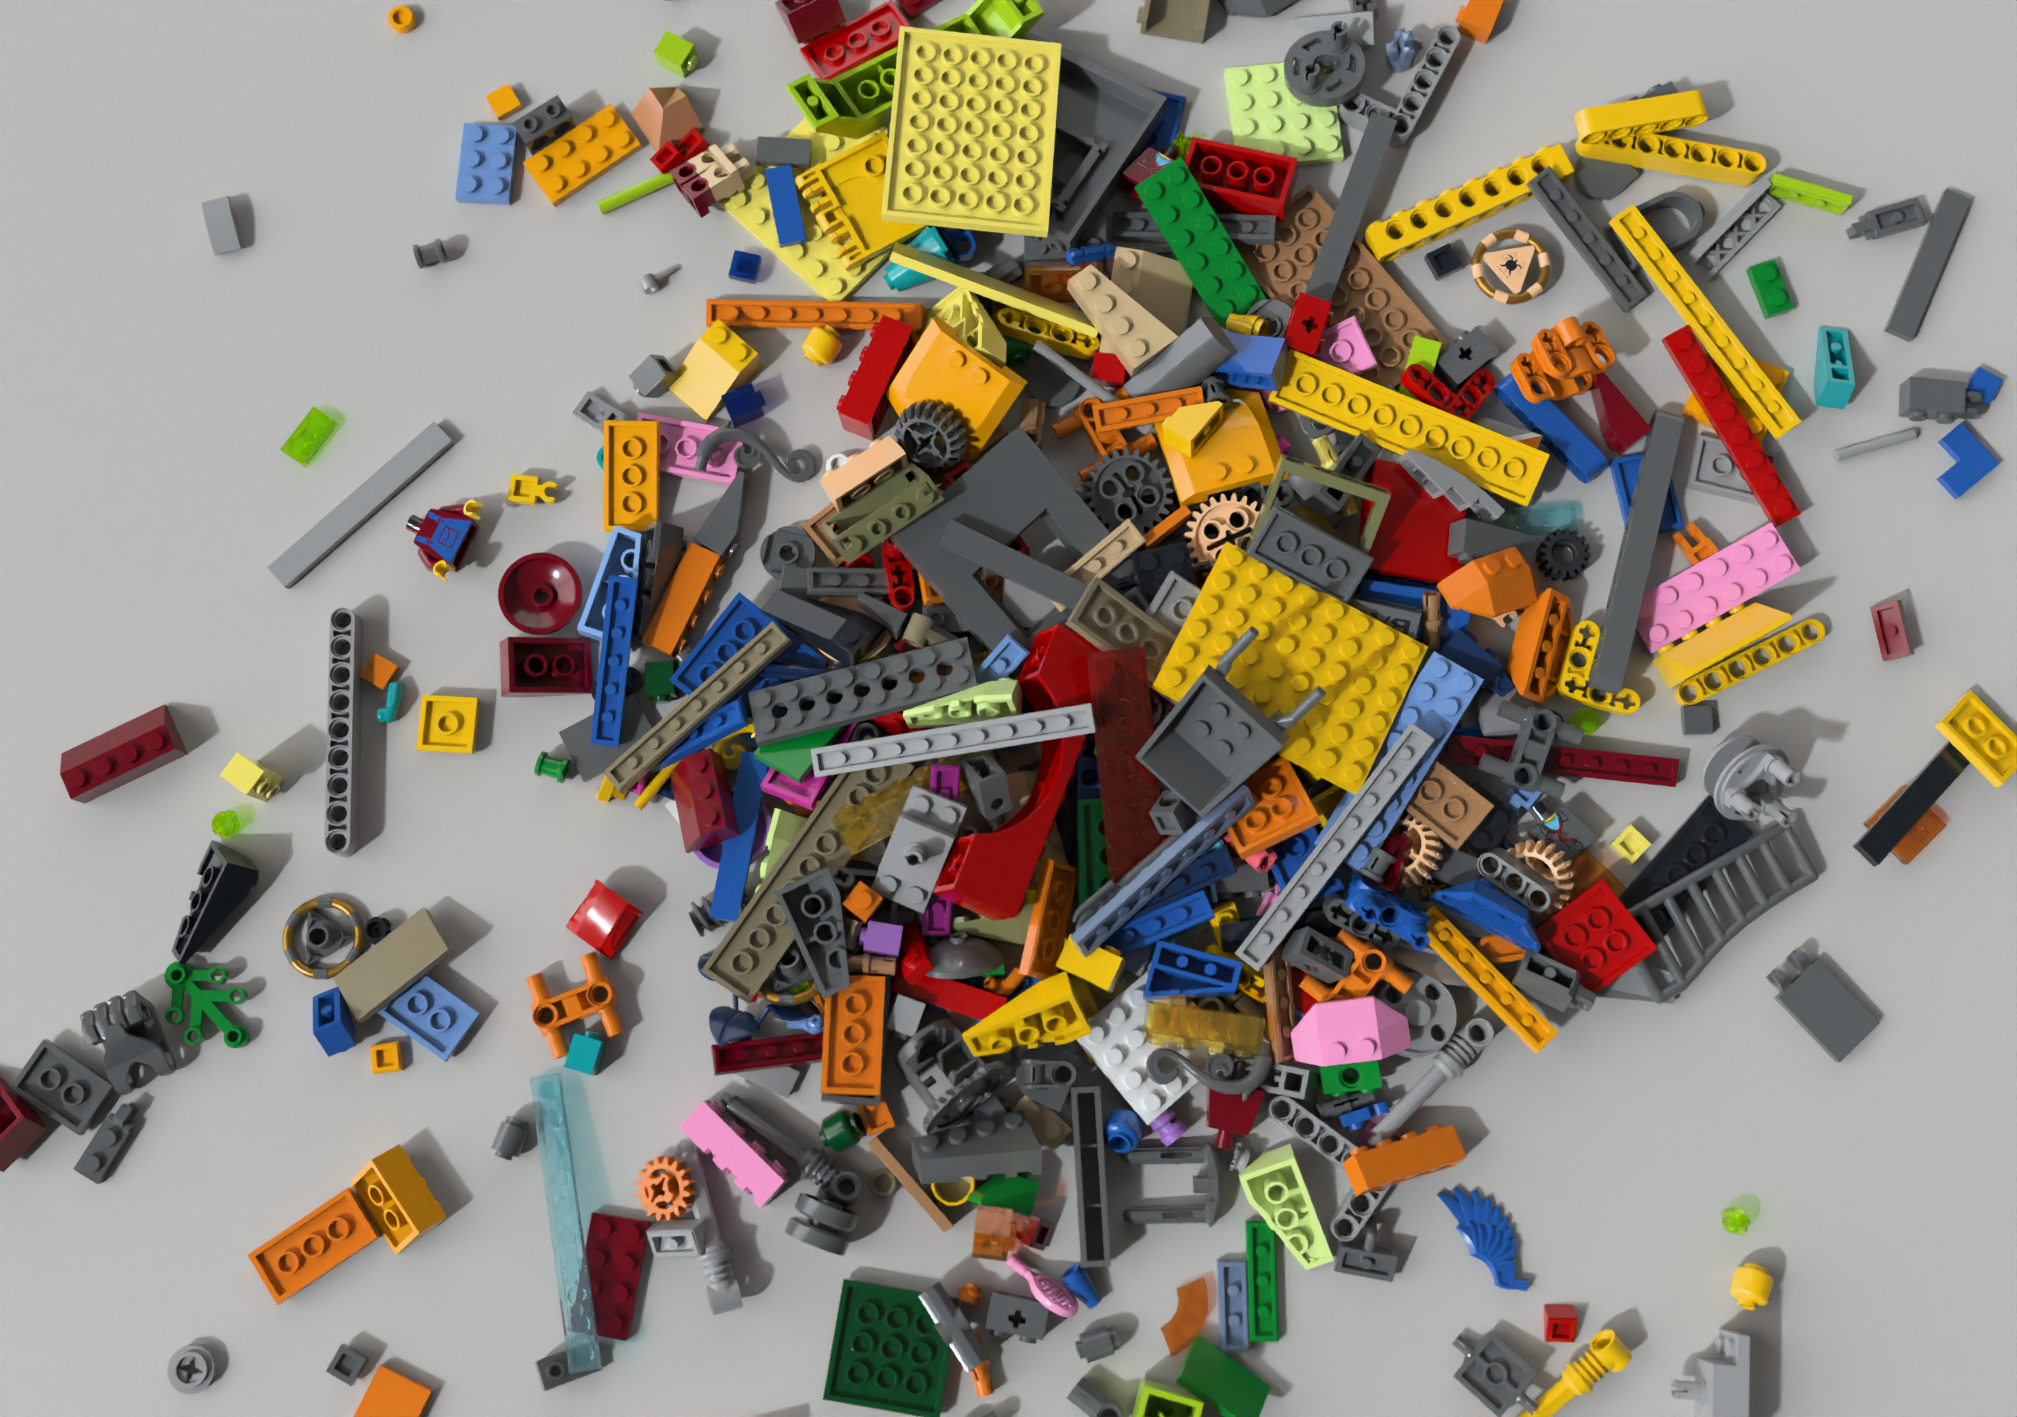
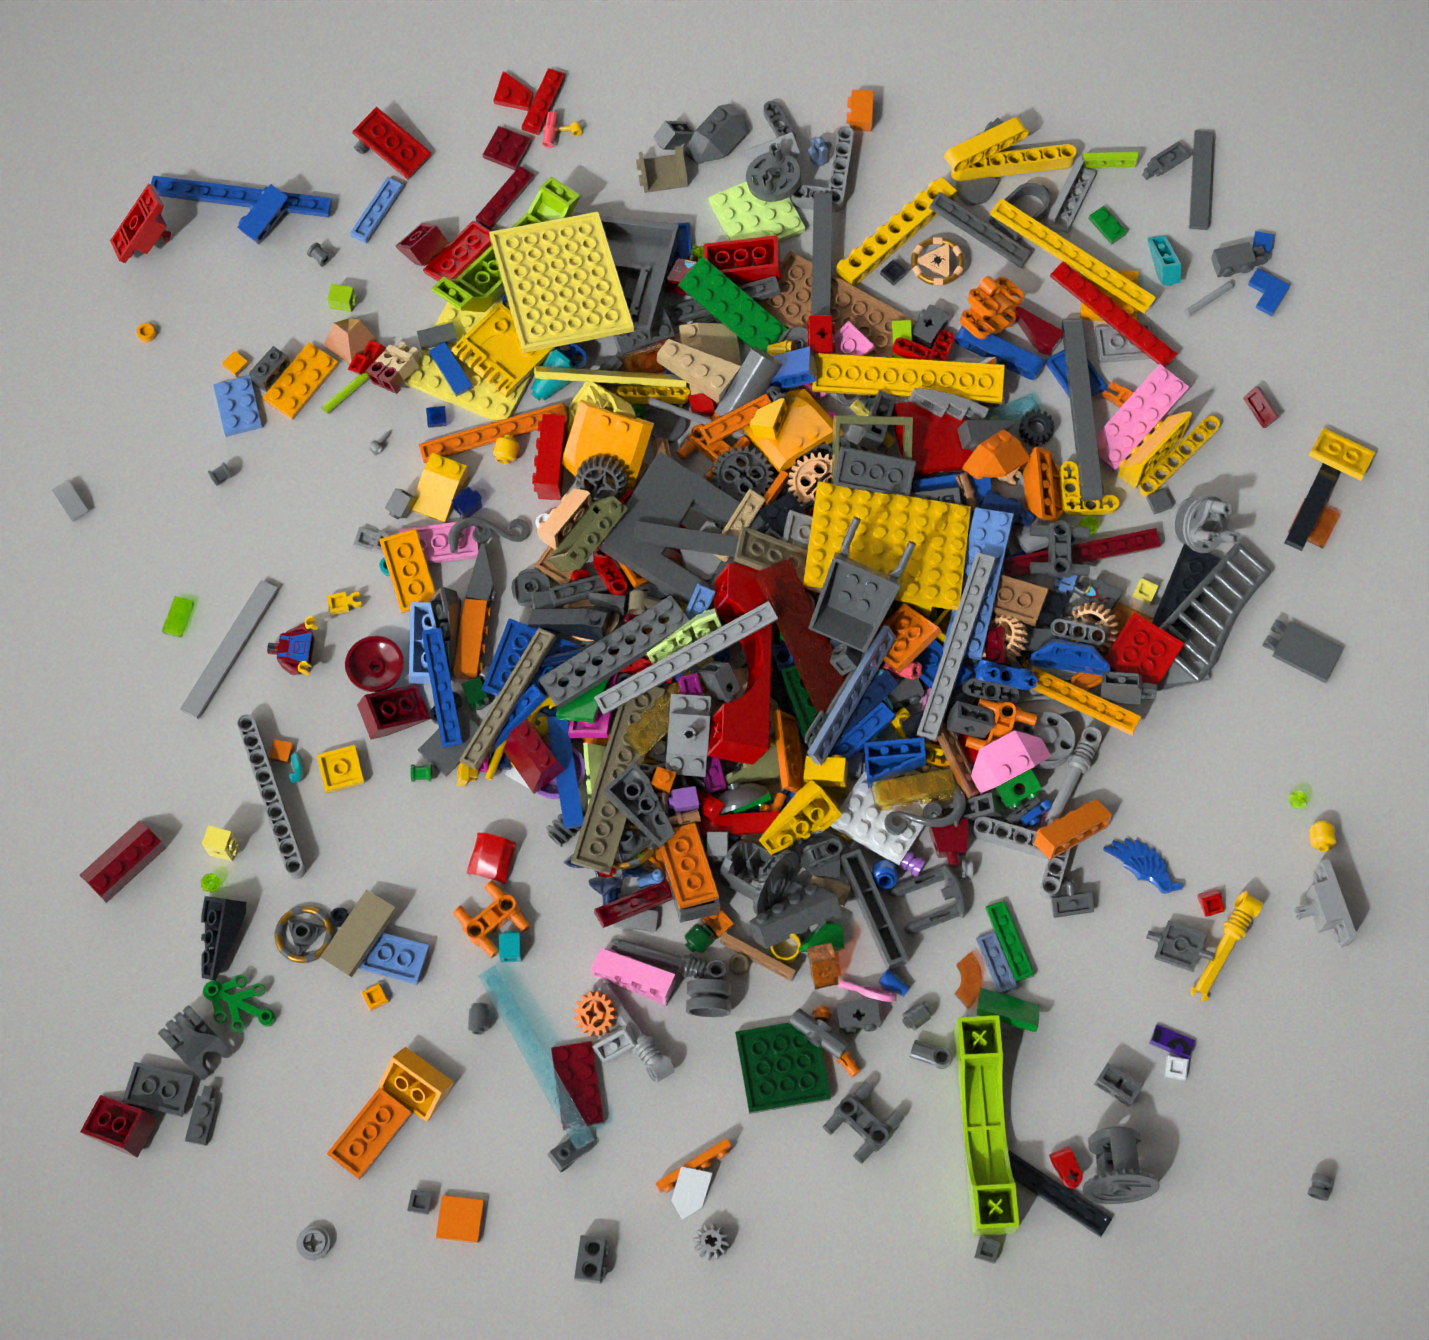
camera: 20 degrees left, 10 degrees down
(333, 1022) = (331, 984): blue slope -> none
(1036, 1232) = (852, 959): dark red tile -> none
(1090, 253) = (664, 334): blue axle -> none
(1282, 1198) = (1005, 883): yellowish green wedge -> none
(1377, 865) = (987, 648): dark grey bush -> none

